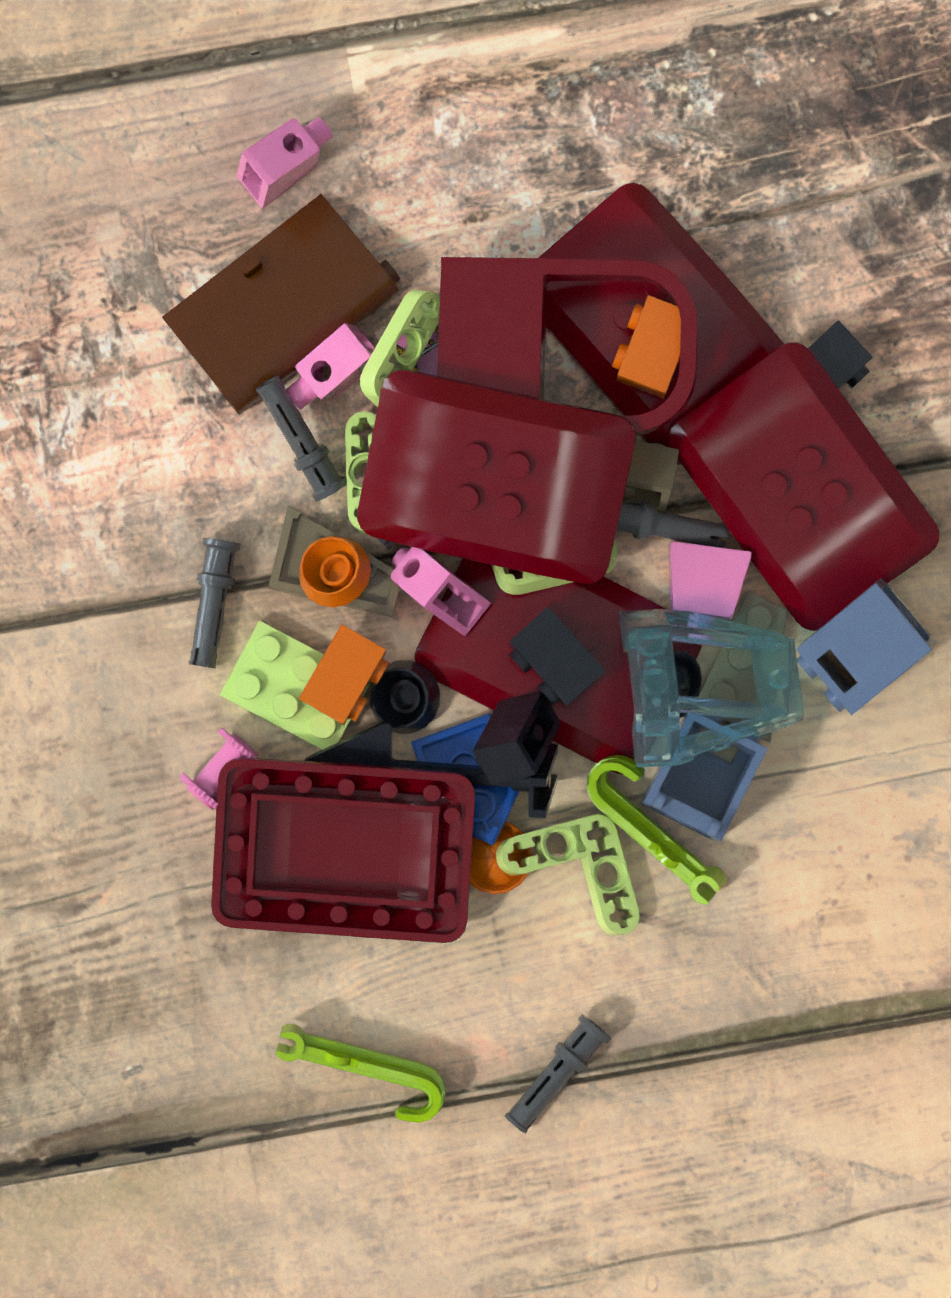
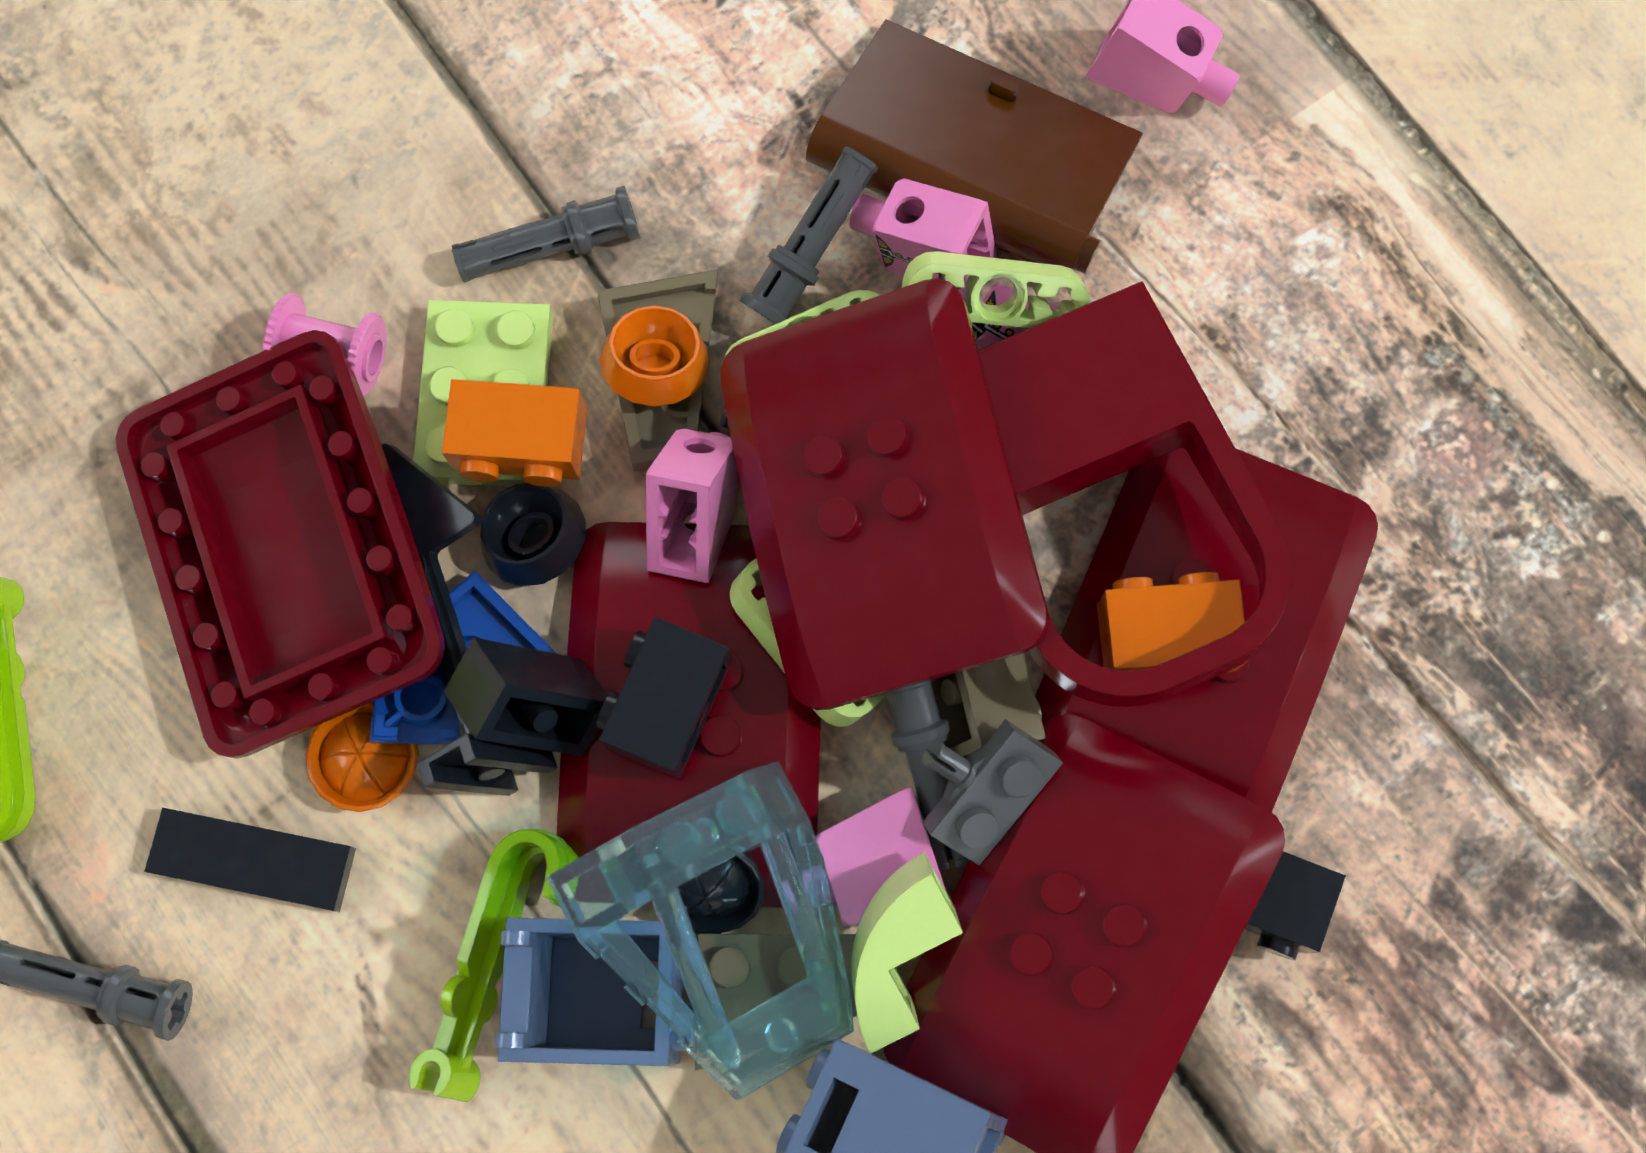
camera: 70 degrees right, 10 degrees down
(525, 950) = (250, 859): none -> black tile
(581, 847) = (419, 864): yellowish green beam -> none
(695, 498) = (987, 789): none -> dark grey plate
(748, 586) = (899, 924): none -> yellowish green brick

